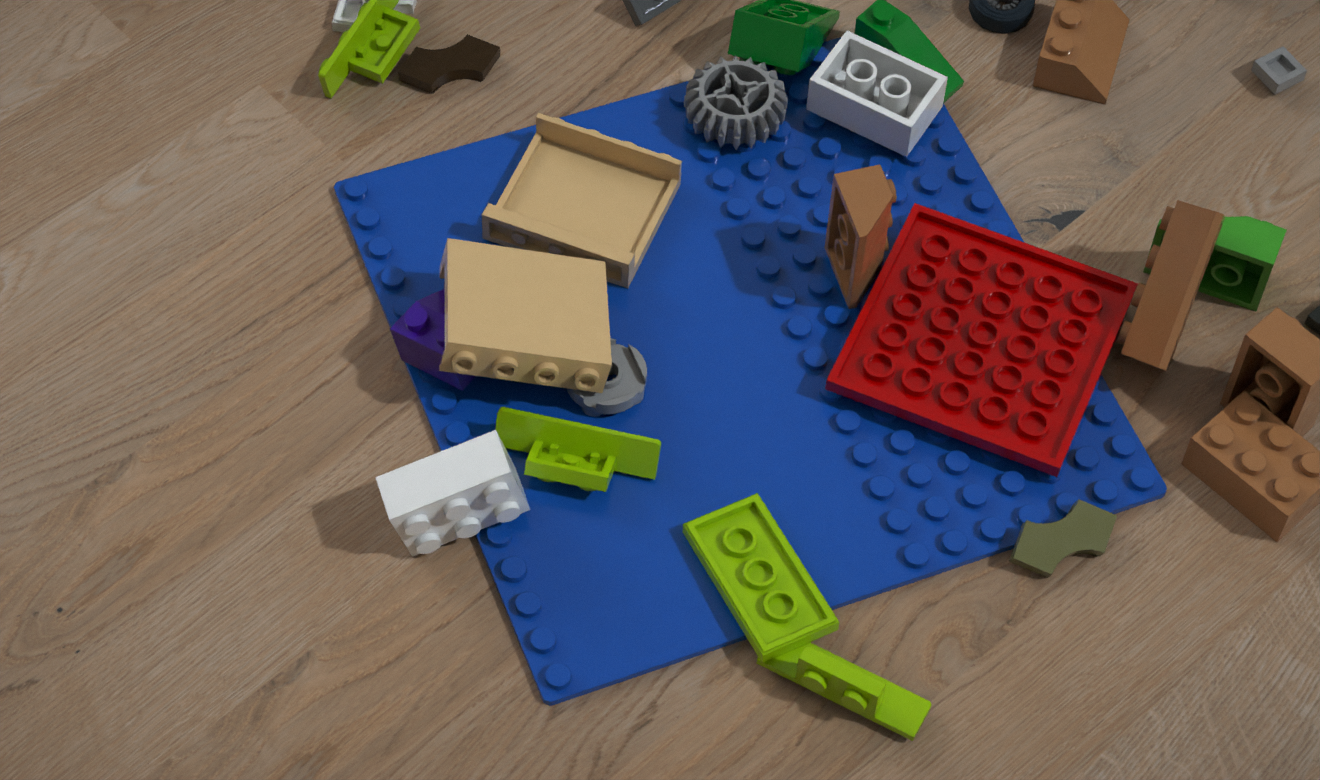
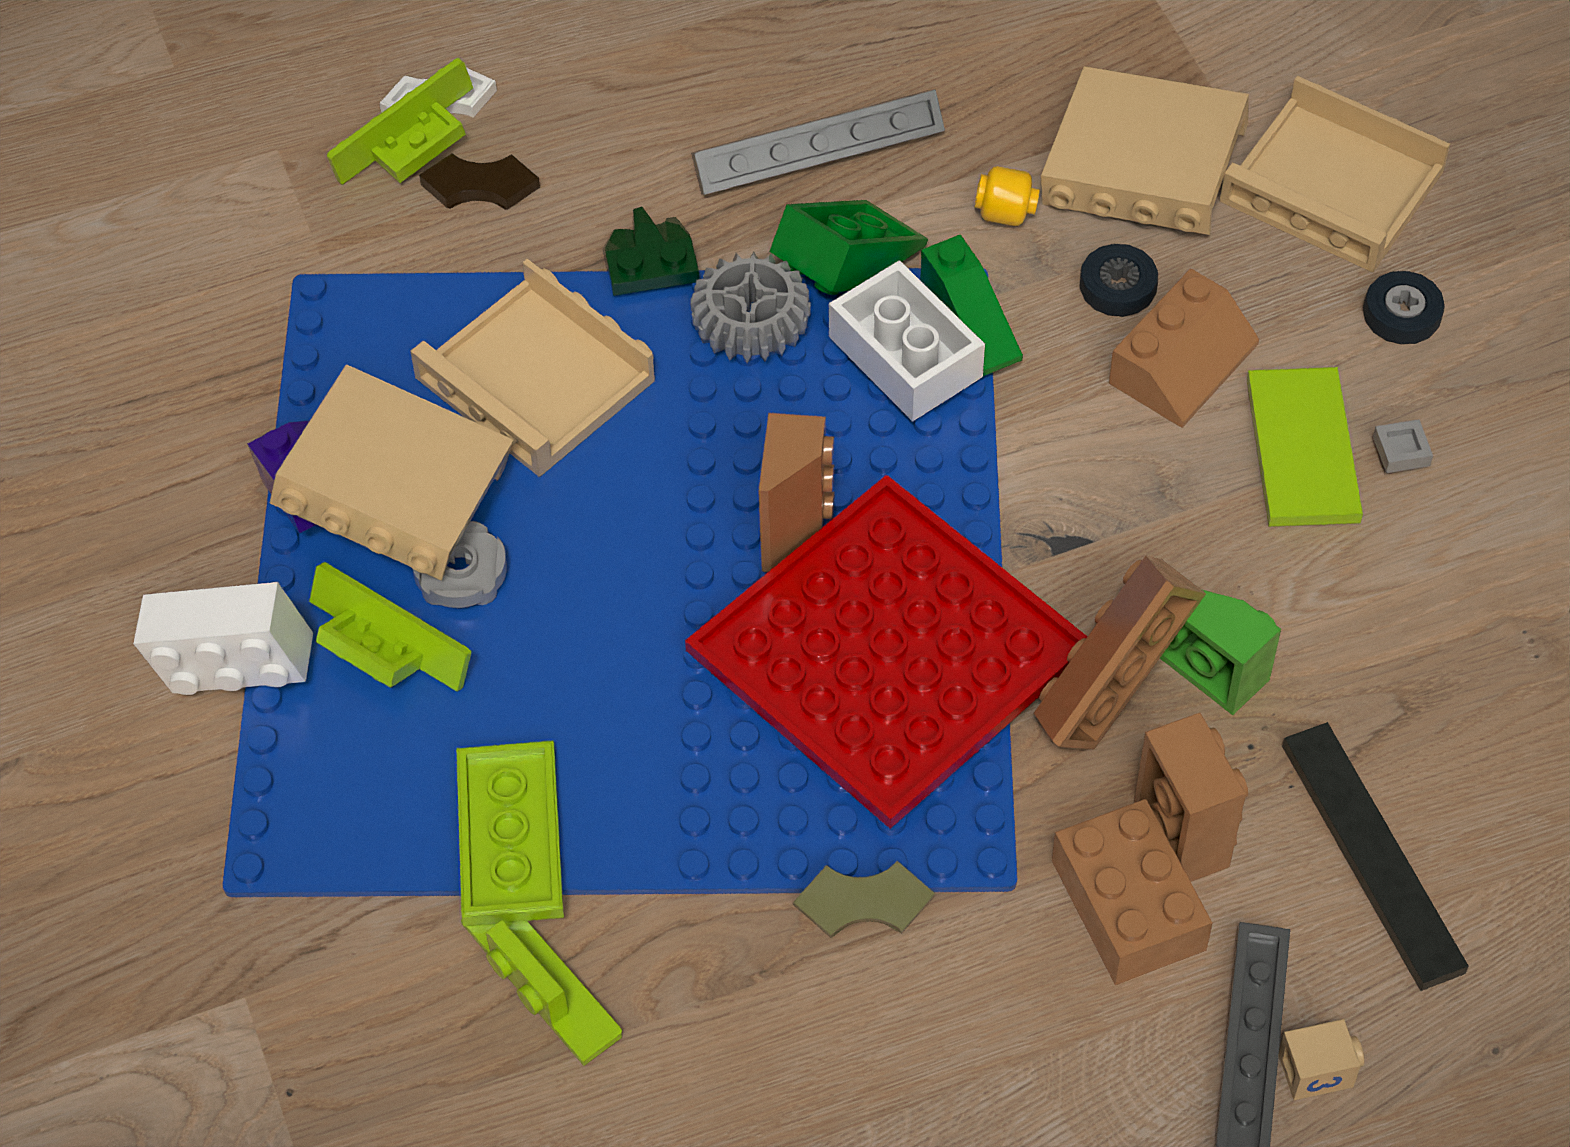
camera: 25 degrees right, 0 degrees up
(624, 84) = (650, 255): none -> dark green plate
(1205, 92) = (1303, 447): none -> lime tile

